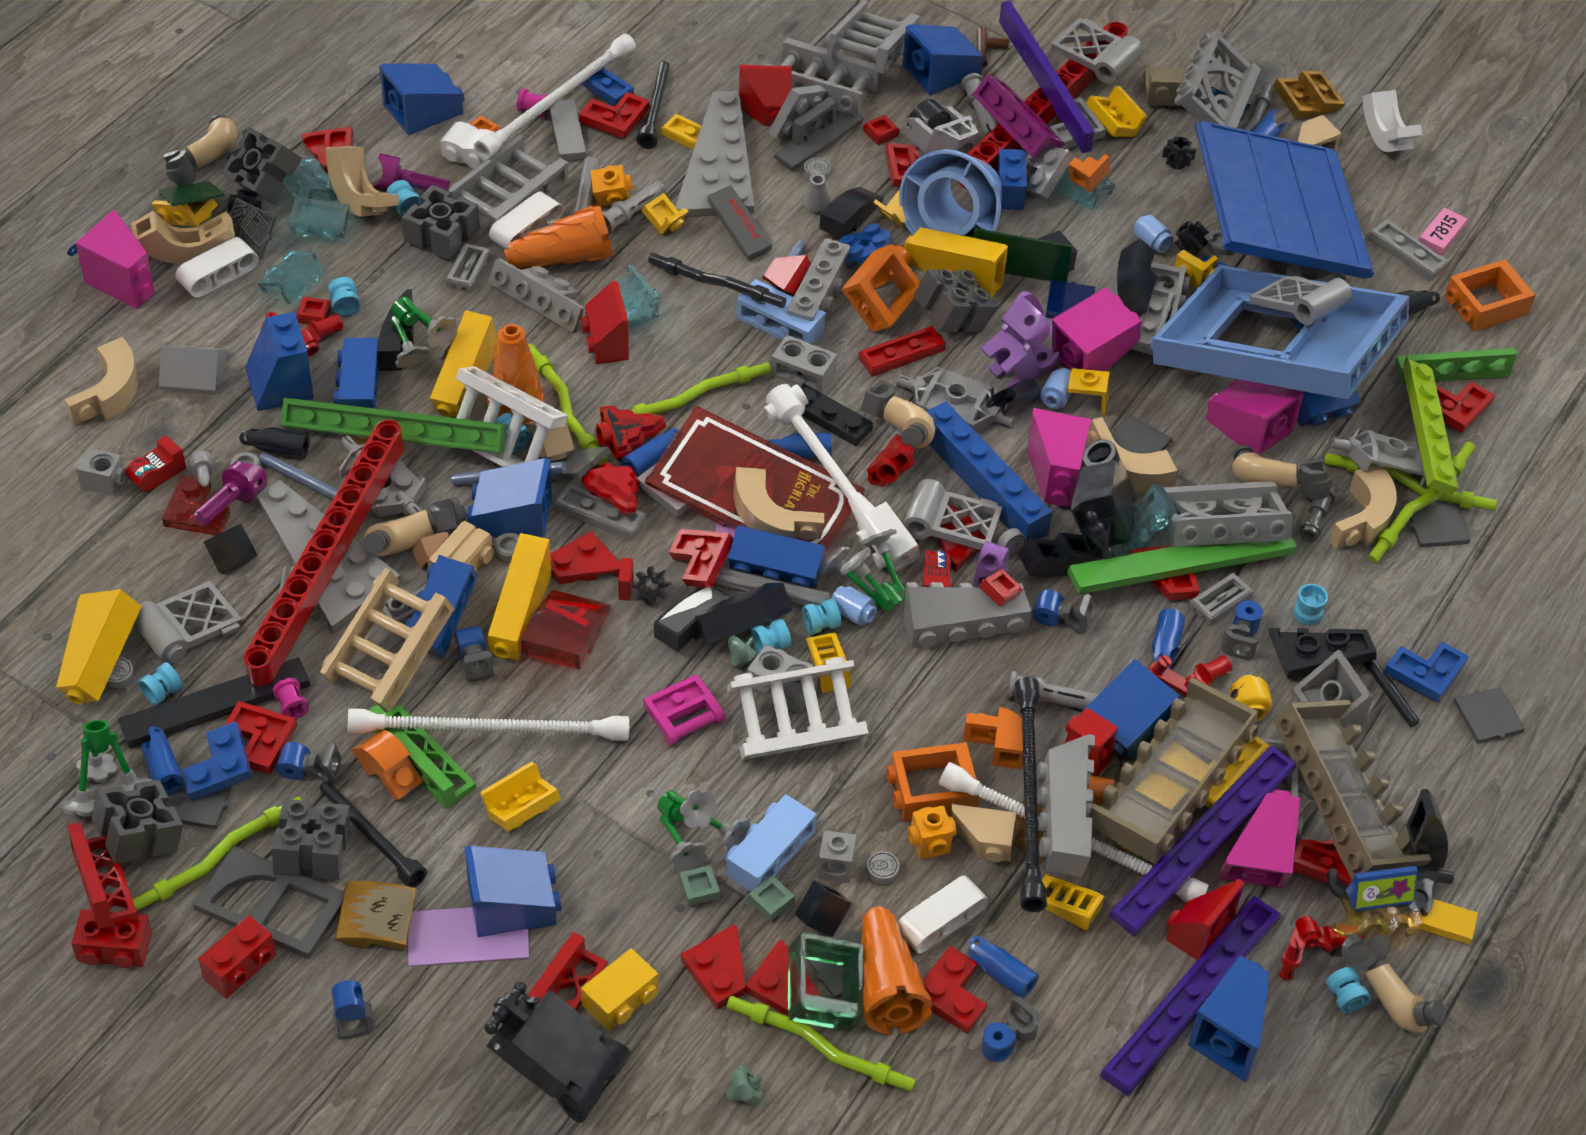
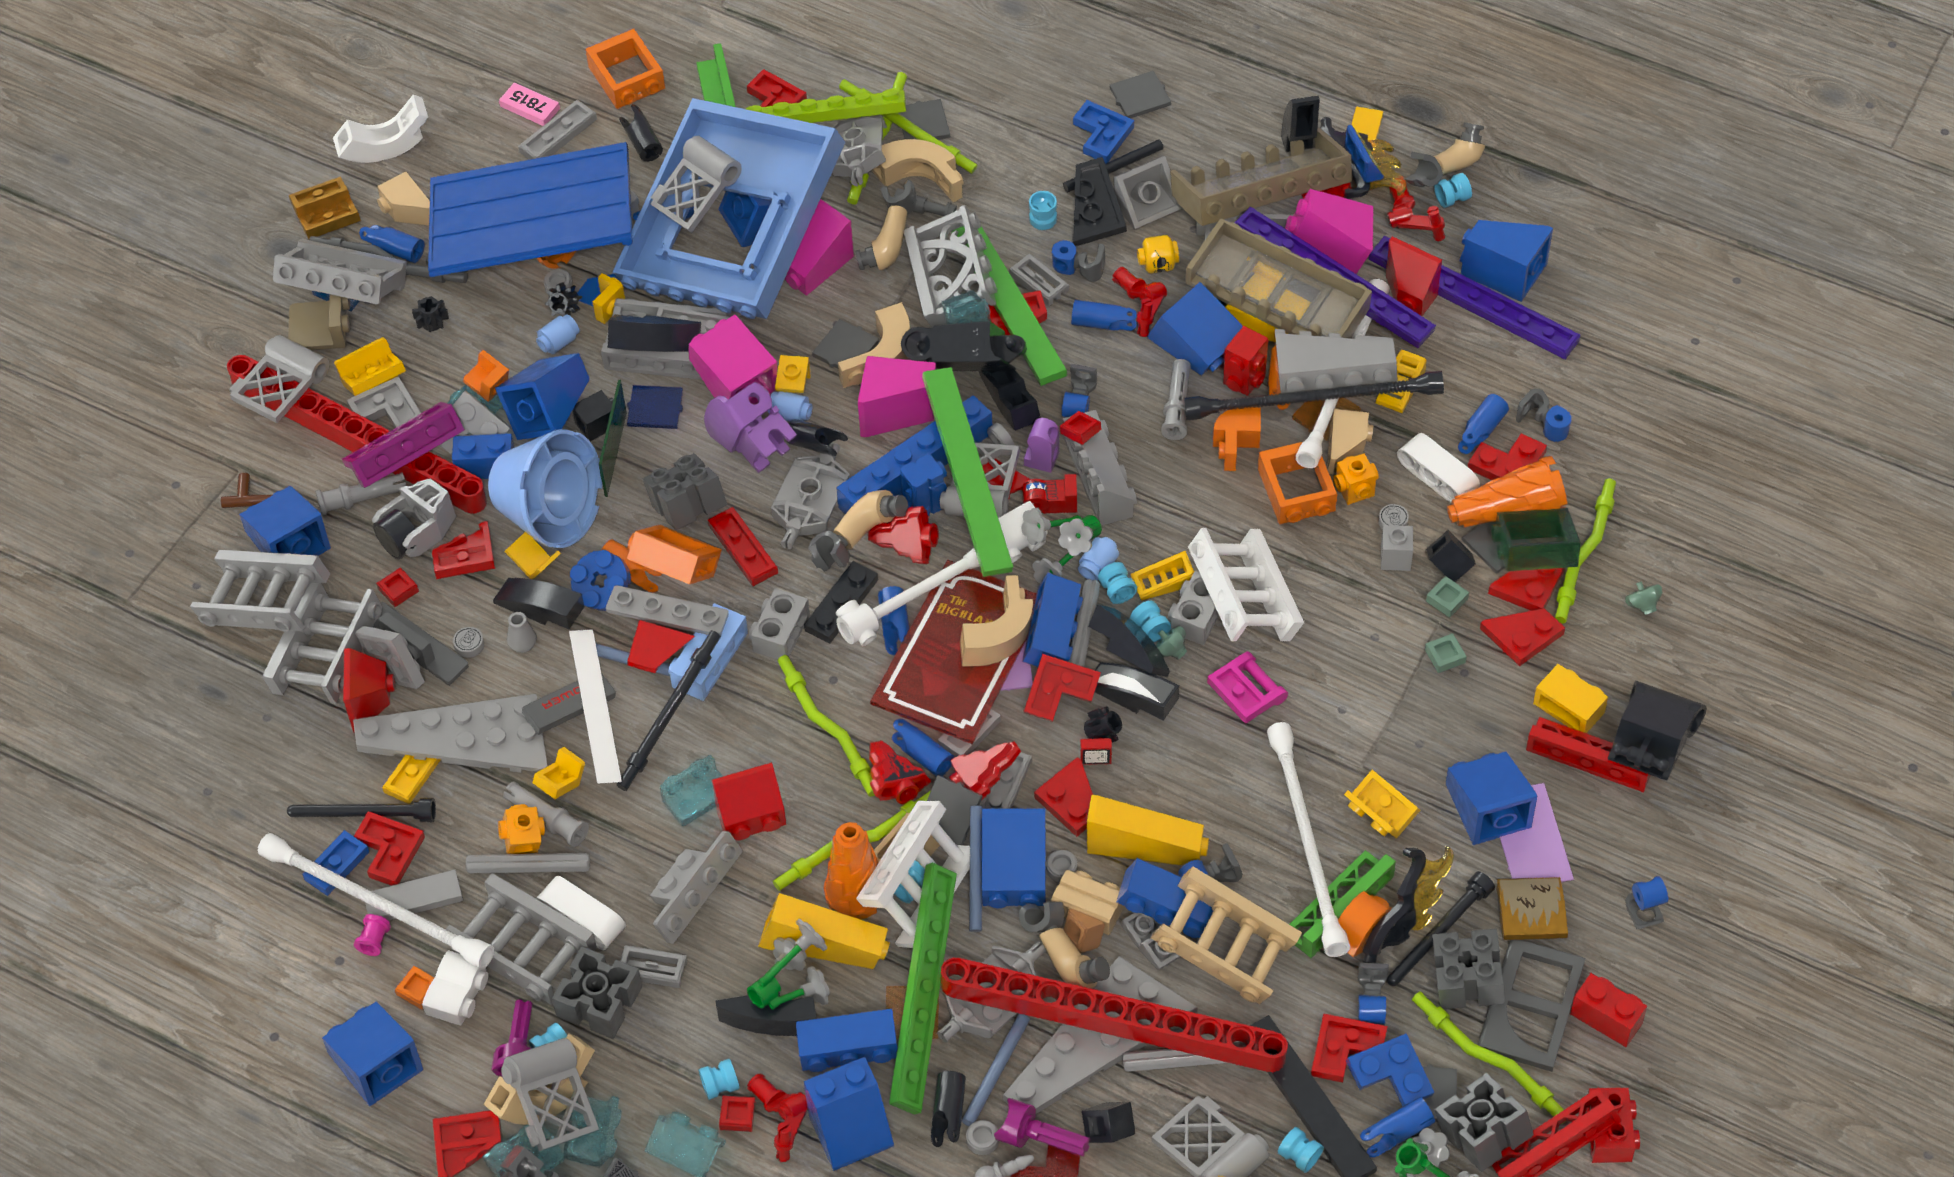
camera: 90 degrees left, 5 degrees up
(290, 698) = (1297, 1025): dark pink bush -> none
(359, 166) = (536, 1070): none -> light grey piece
(391, 795) = (1414, 898): none -> black piece
(564, 629) = (1169, 788): clear red slope -> none
(565, 241) = (618, 859): orange cone -> none
(696, 811) = (1366, 677): light grey plant -> none
(732, 237) = (595, 706): none -> white sticker
(770, 843) = (1391, 600): light blue brick -> none
(944, 462) = (924, 483): none -> blue brick
(946, 486) = (967, 472): none -> bright green tile
(949, 251) = (617, 493): yellow slope -> none
(1046, 77) = (335, 419): dark purple tile -> none
(1073, 209) = (543, 395): none -> blue slope

